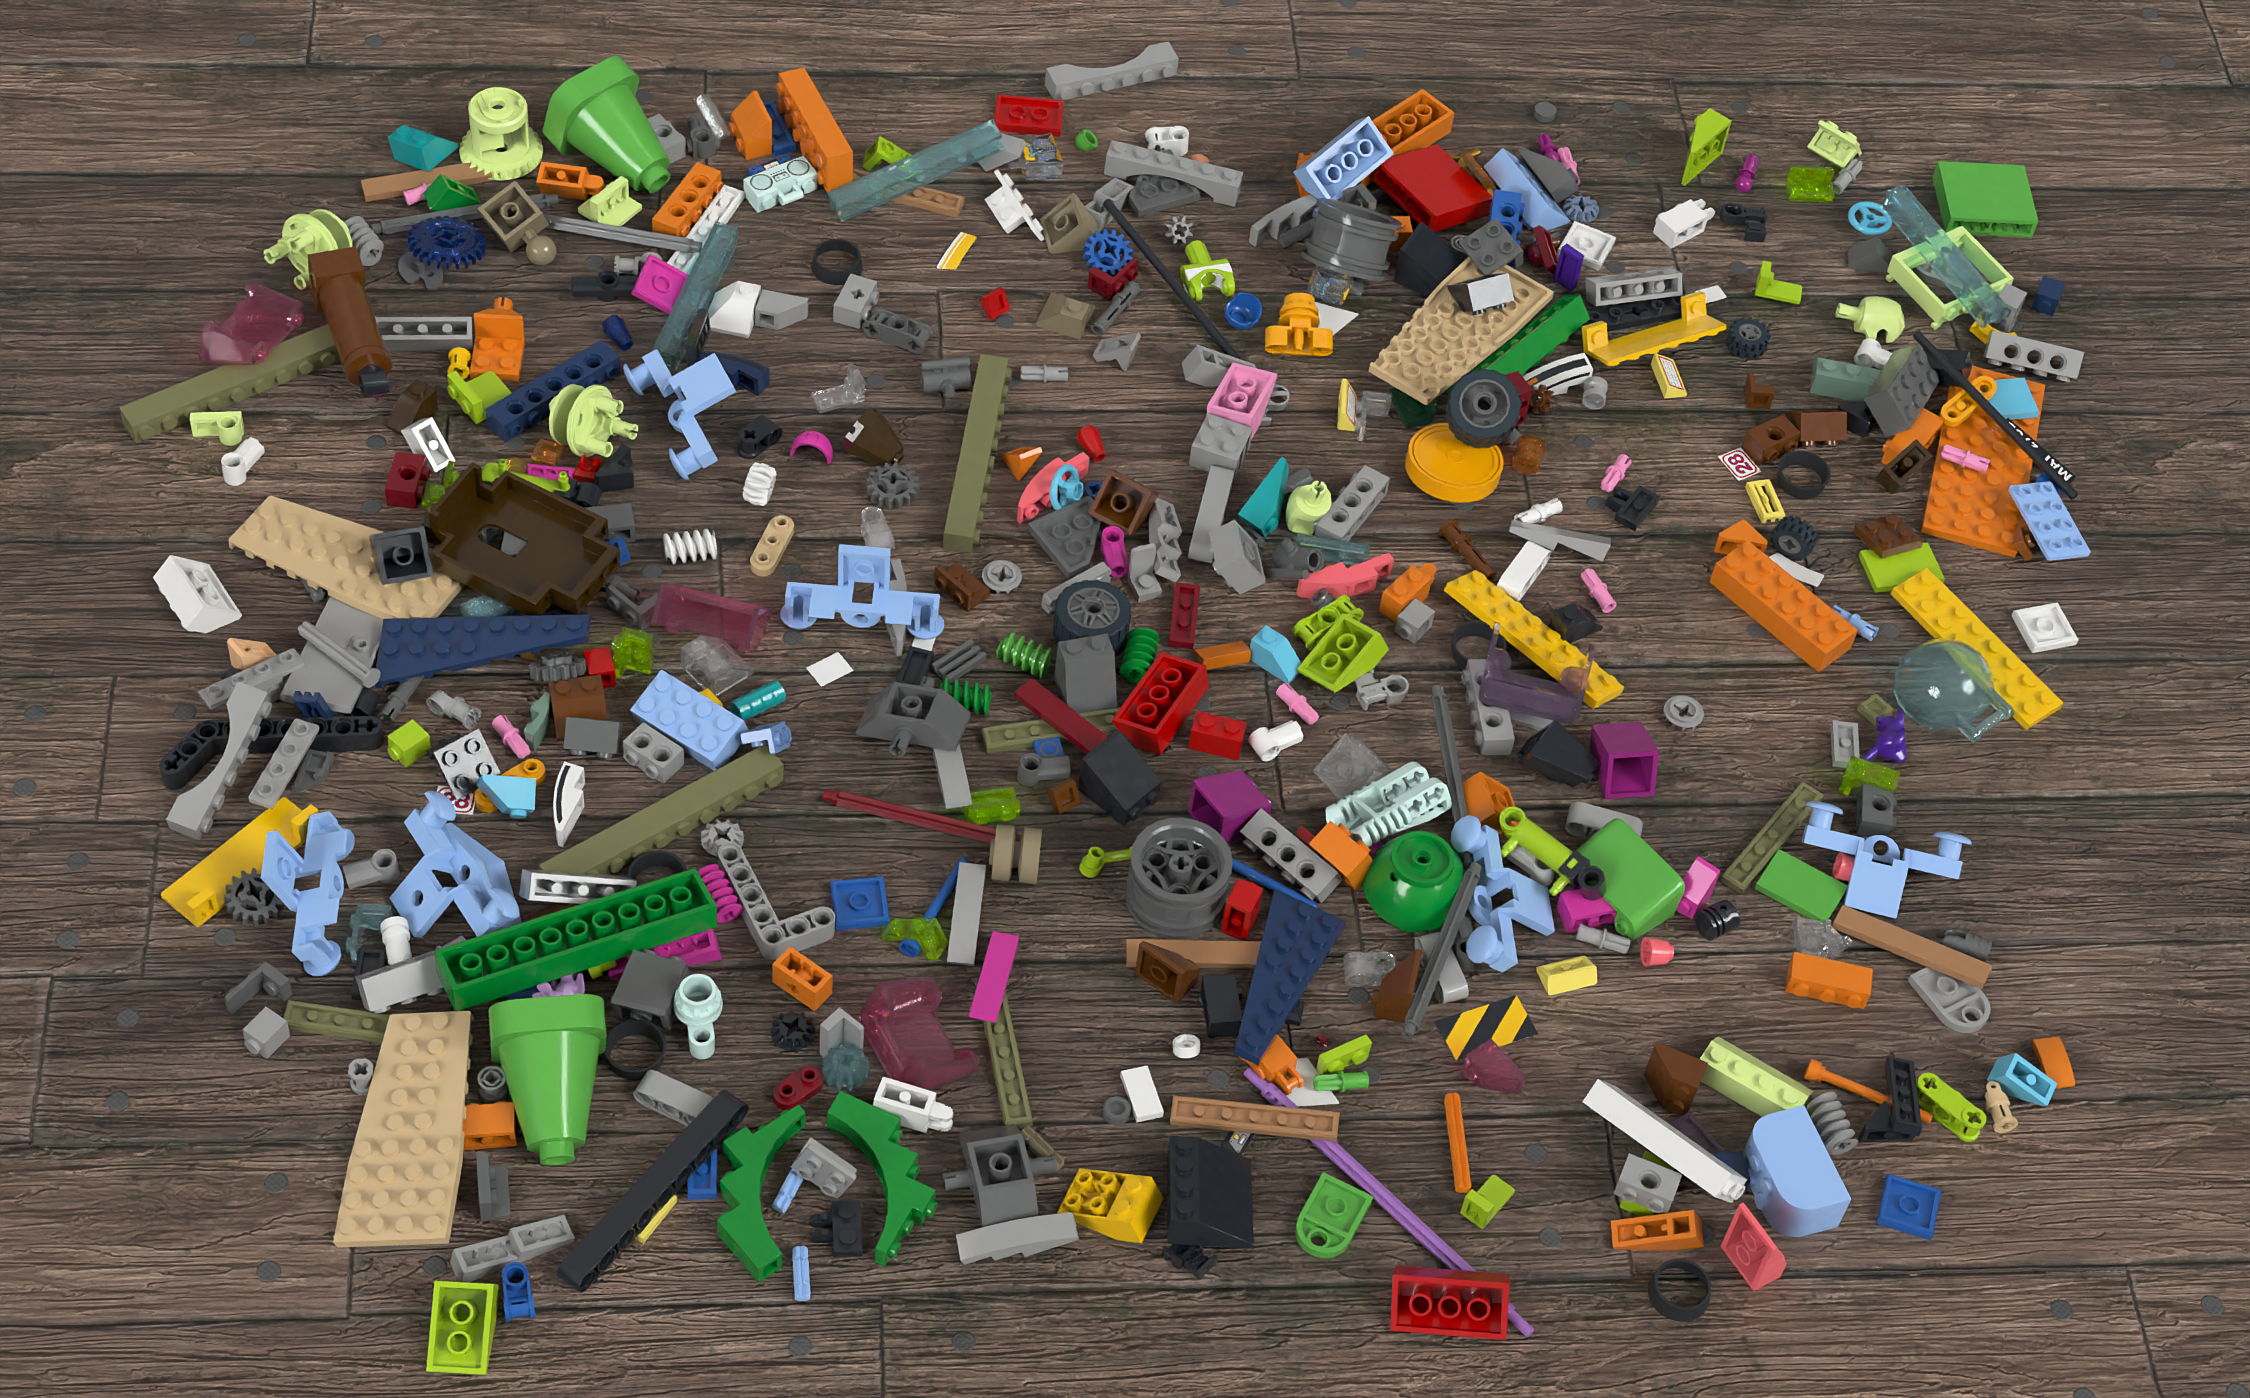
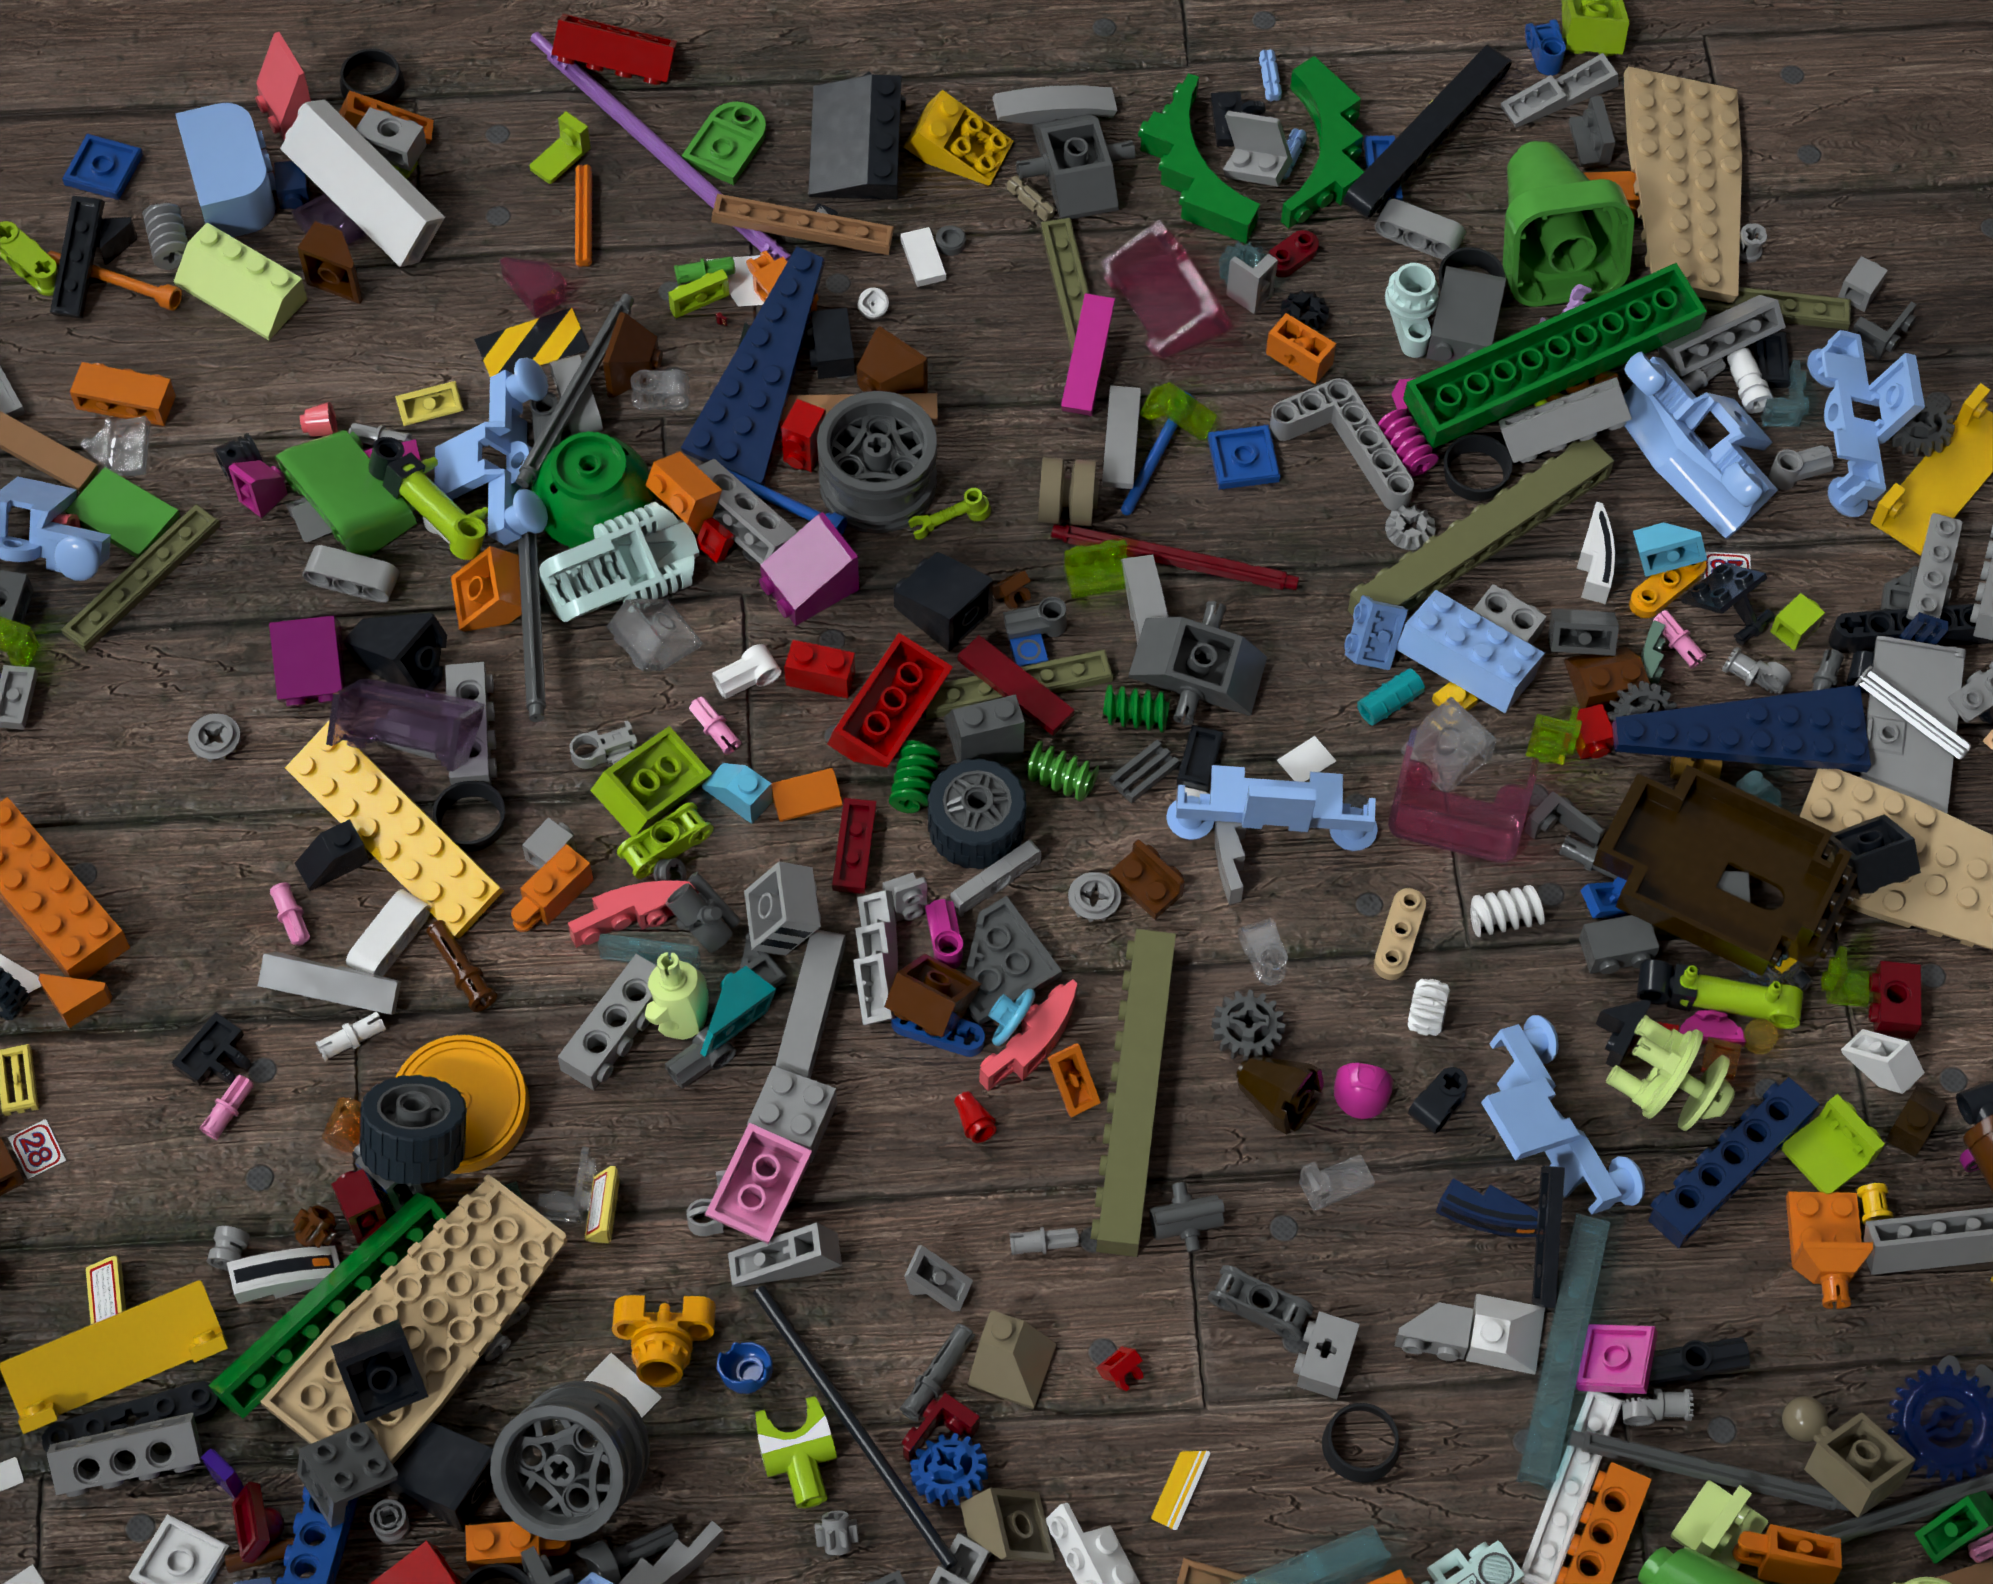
camera: 175 degrees left, 10 degrees up
(617, 331) = (1664, 1277): clear blue cone -> none
(913, 1105) = (1184, 217): white hinge -> none

